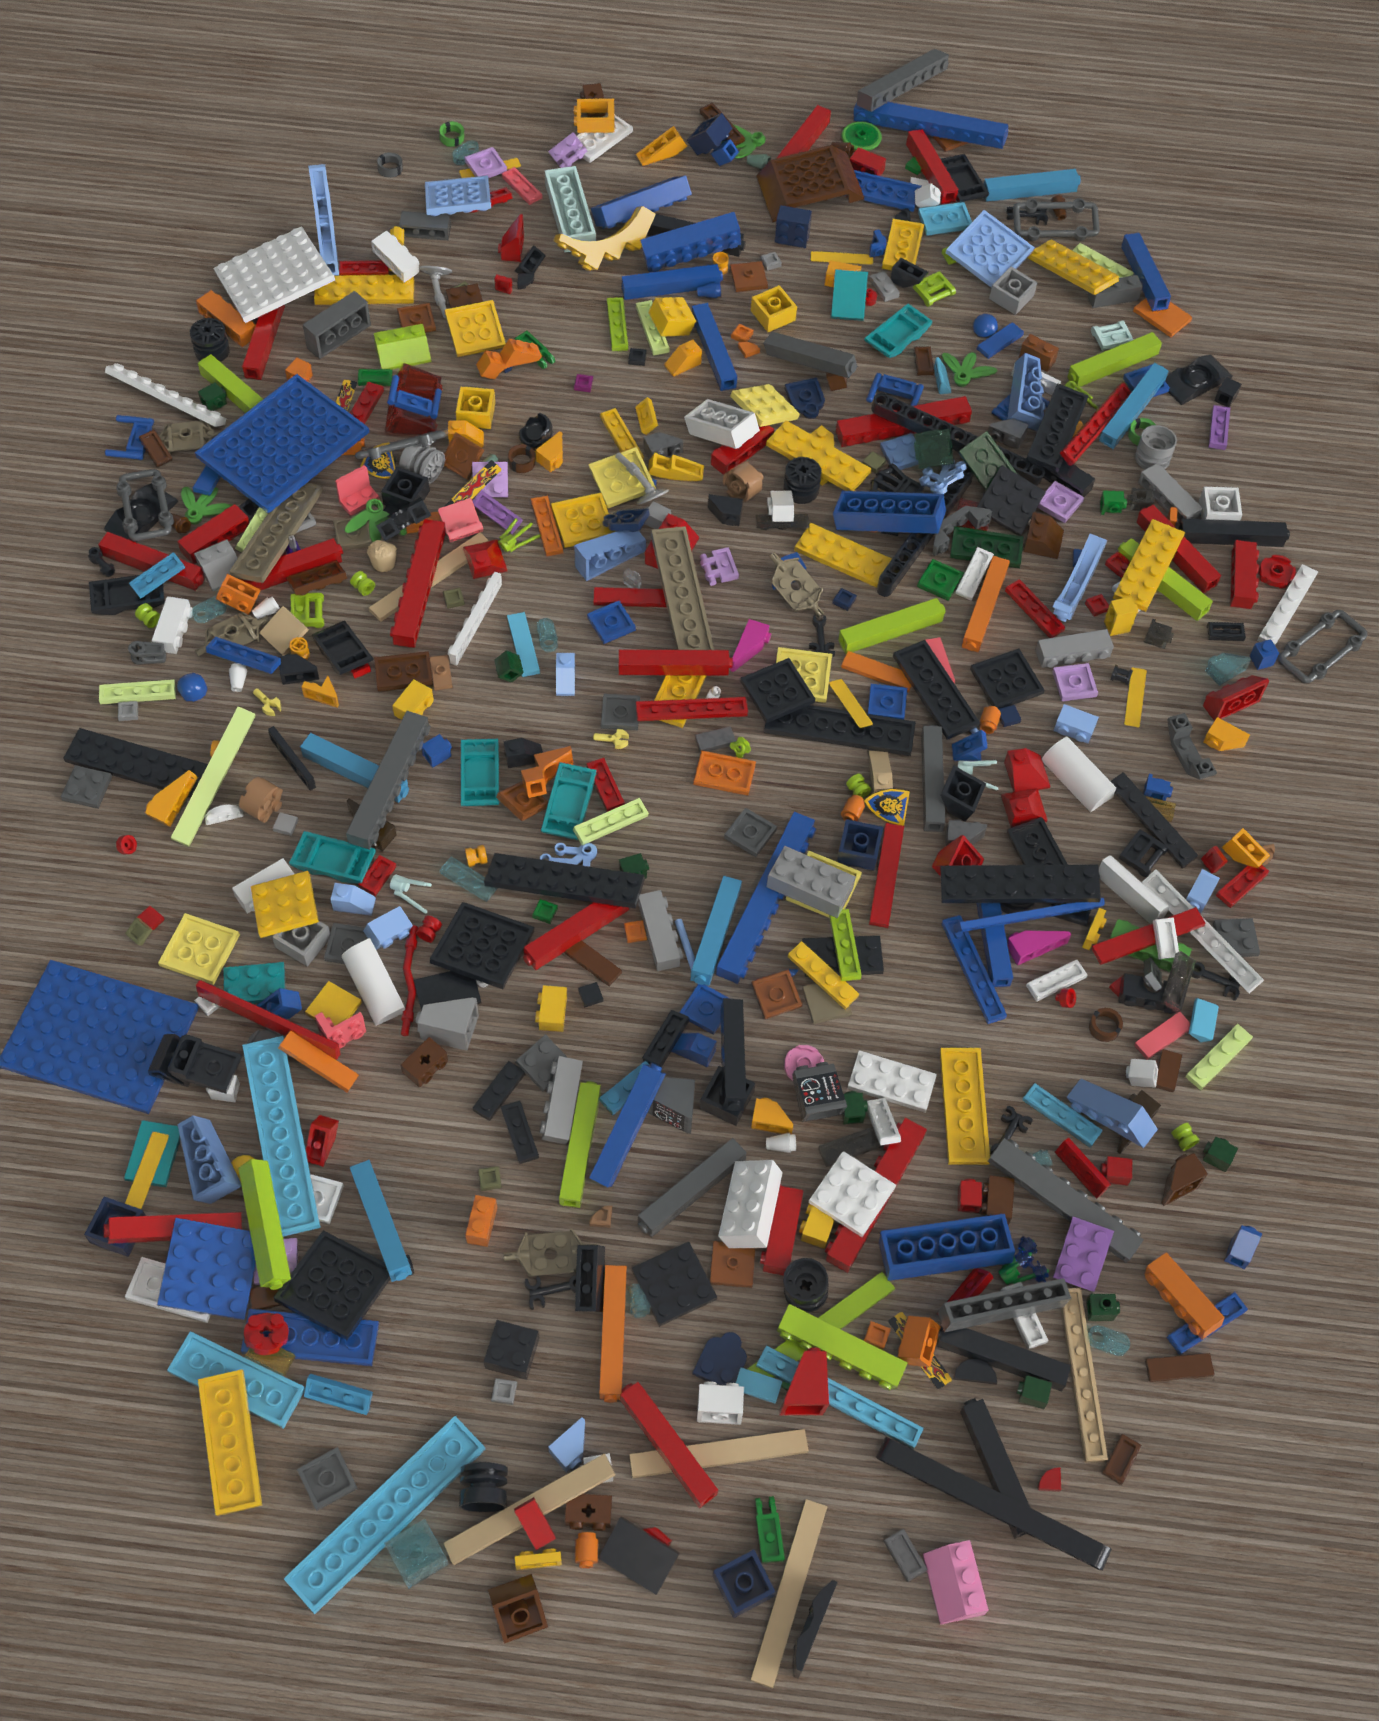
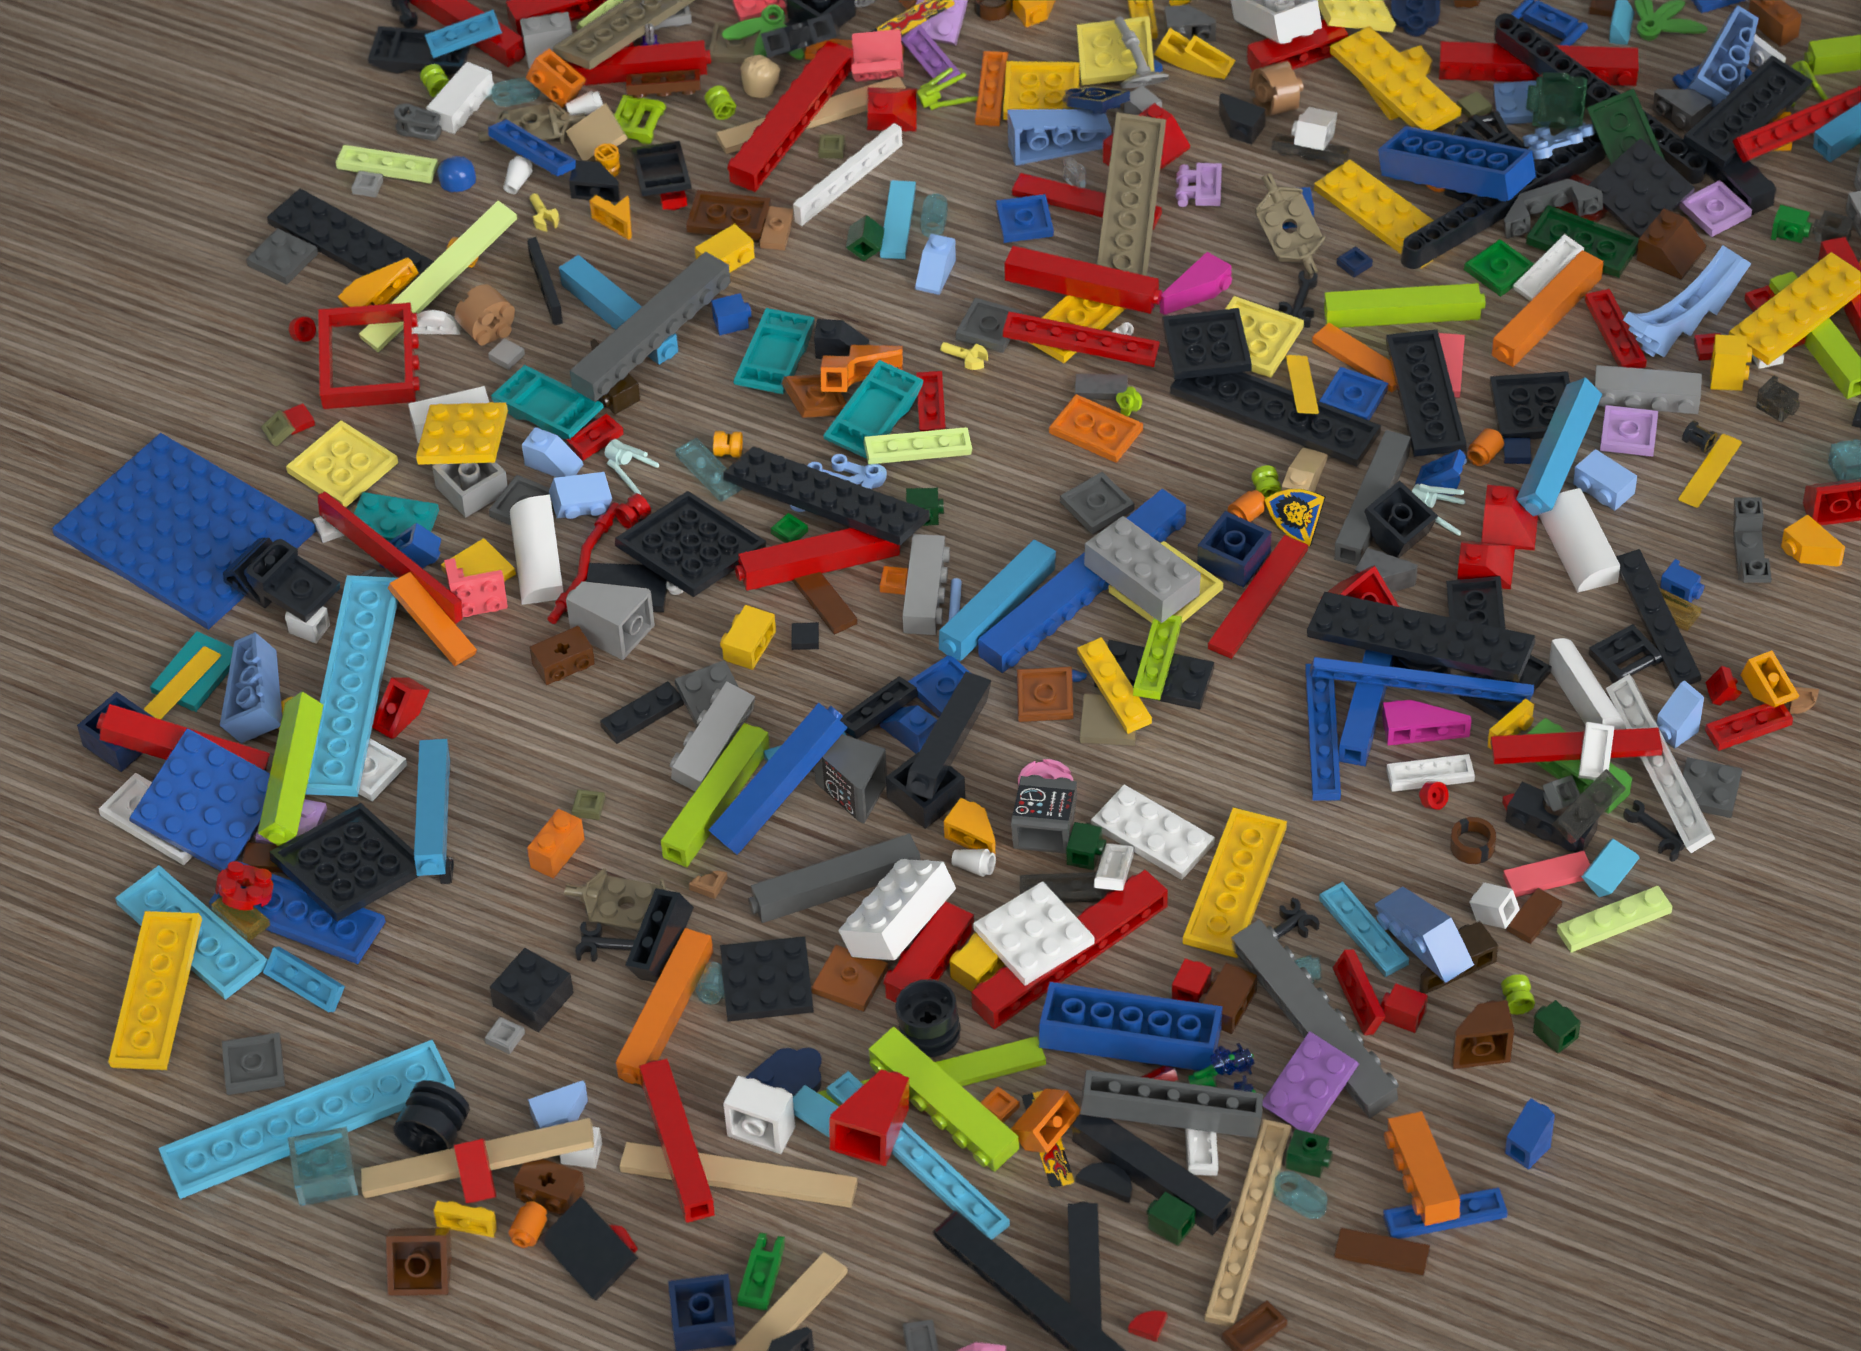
camera: 25 degrees right, 10 degrees down
(196, 886) = (368, 394): none -> red window
(519, 1132) = (646, 762): black plate -> none
(802, 479) = (1359, 103): black wheel -> none
(1042, 709) = (1559, 447): none -> dark azure brick

